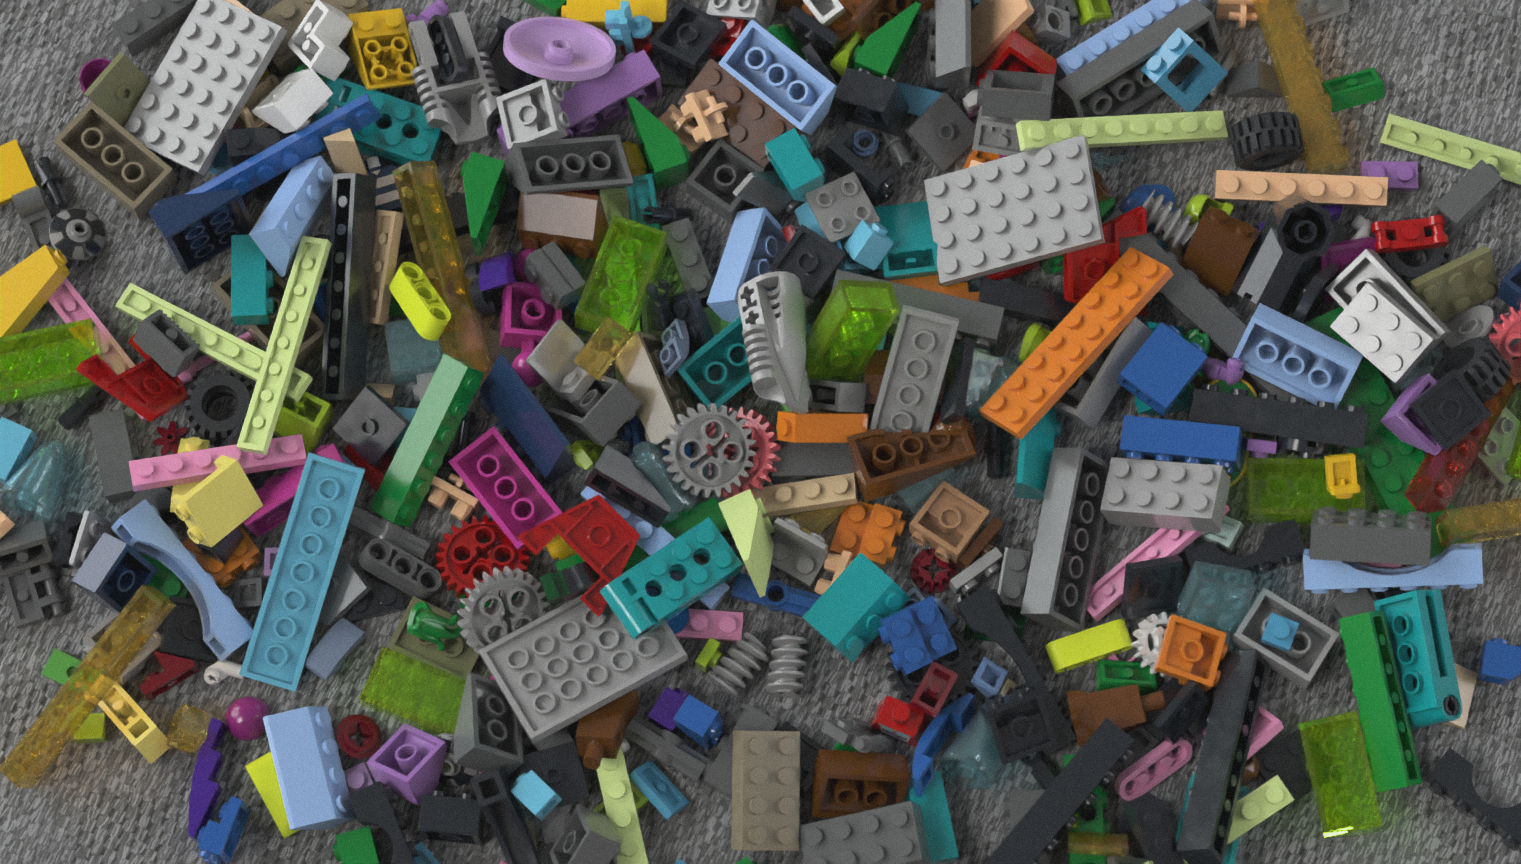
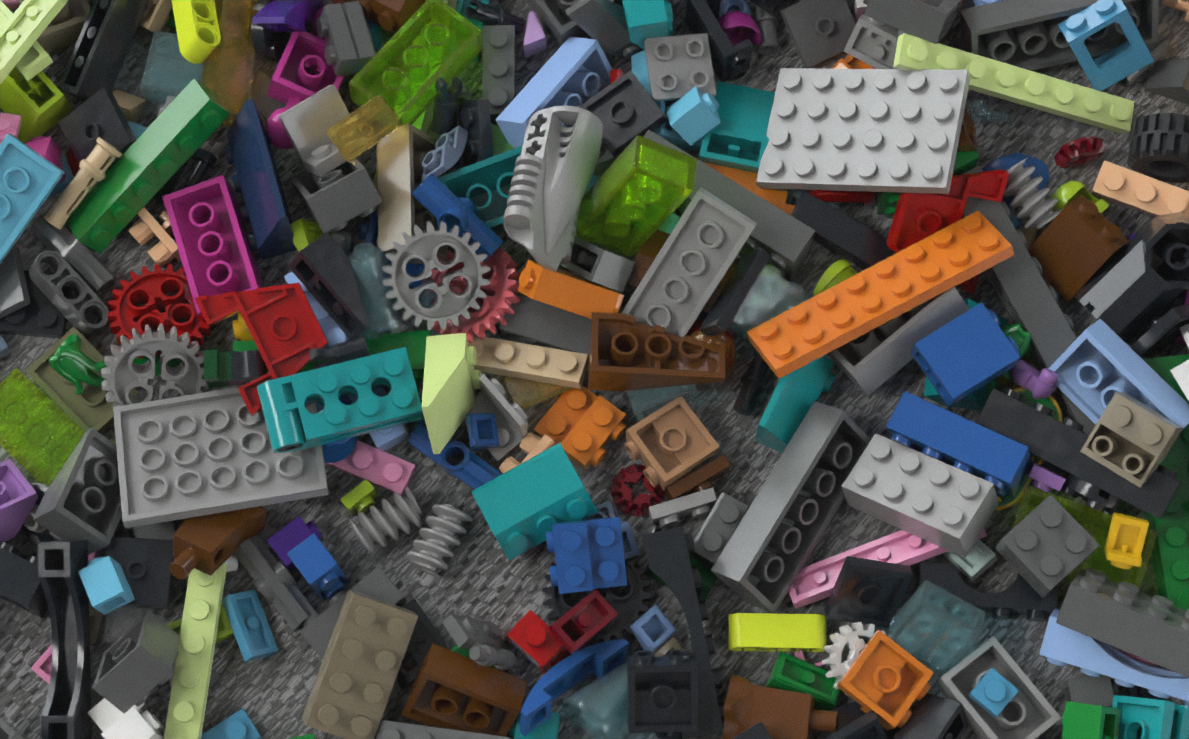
camera: 20 degrees right, 0 degrees up
(382, 461) = (91, 170): none -> tan pin
(654, 541) = (339, 352): none -> black bar
(696, 392) = (458, 212): none -> blue piece
(707, 220) = (534, 37): none -> lavender slope
(789, 565) = (482, 431): none -> blue slope
(877, 157) = (740, 27): none -> magenta hair
(1193, 168) = (1079, 152): none -> dark red gear
(1281, 501) = (1046, 546): none -> dark grey brick
(1318, 392) = (1131, 439): none -> dark tan slope

